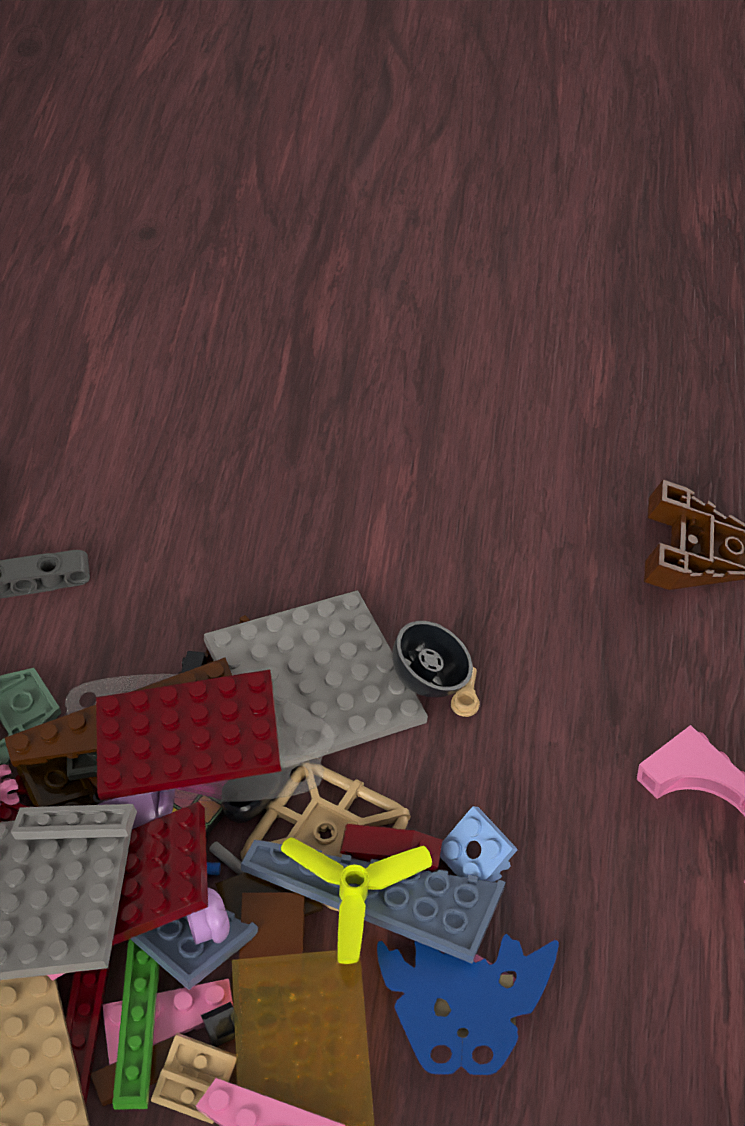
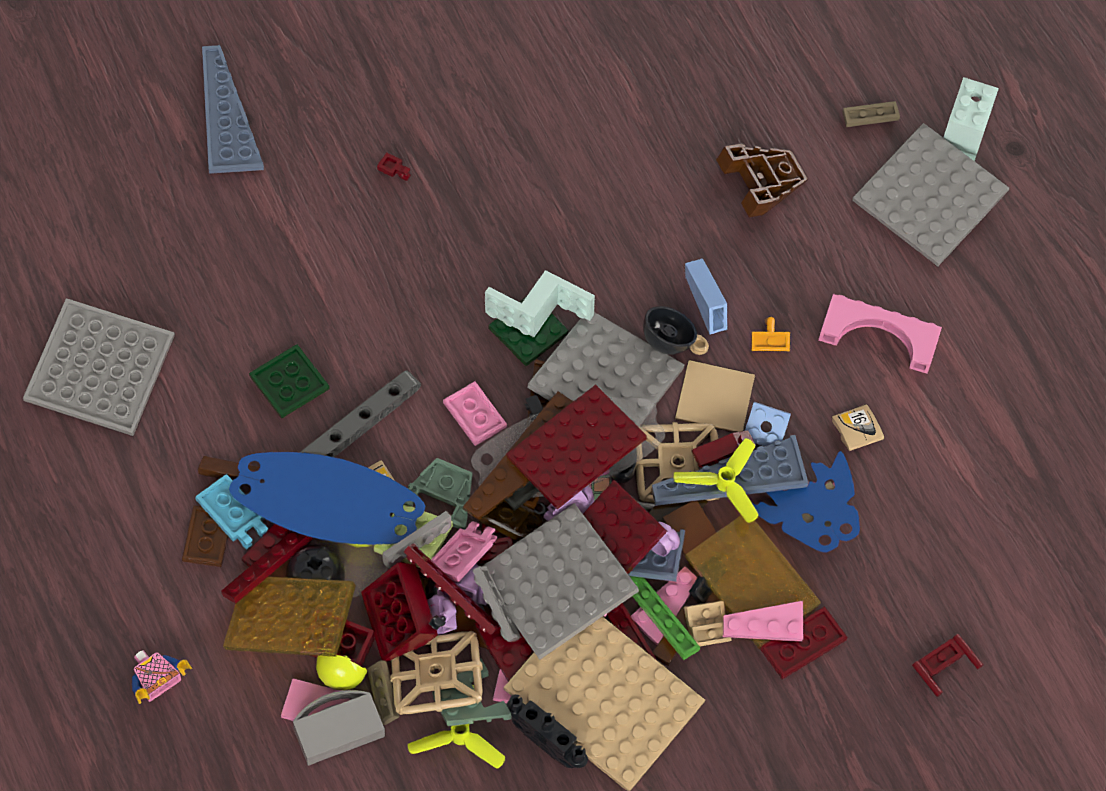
camera: 40 degrees left, 10 degrees up
(74, 821) = (554, 528): light grey plate -> none
(117, 232) = (228, 132): none -> sand blue wing
(126, 641) = (475, 413): none -> bright pink tile
(257, 337) = (392, 165): none -> dark red plate
(267, 579) = (525, 346): none -> dark green plate
(289, 548) = (539, 304): none -> light aqua bracket
(441, 777) = (715, 396): none -> tan piece
(516, 648) = (707, 296): none -> light blue slope
(564, 742) = (770, 340): none -> light orange plate
(609, 923) = (858, 427): none -> tan slope

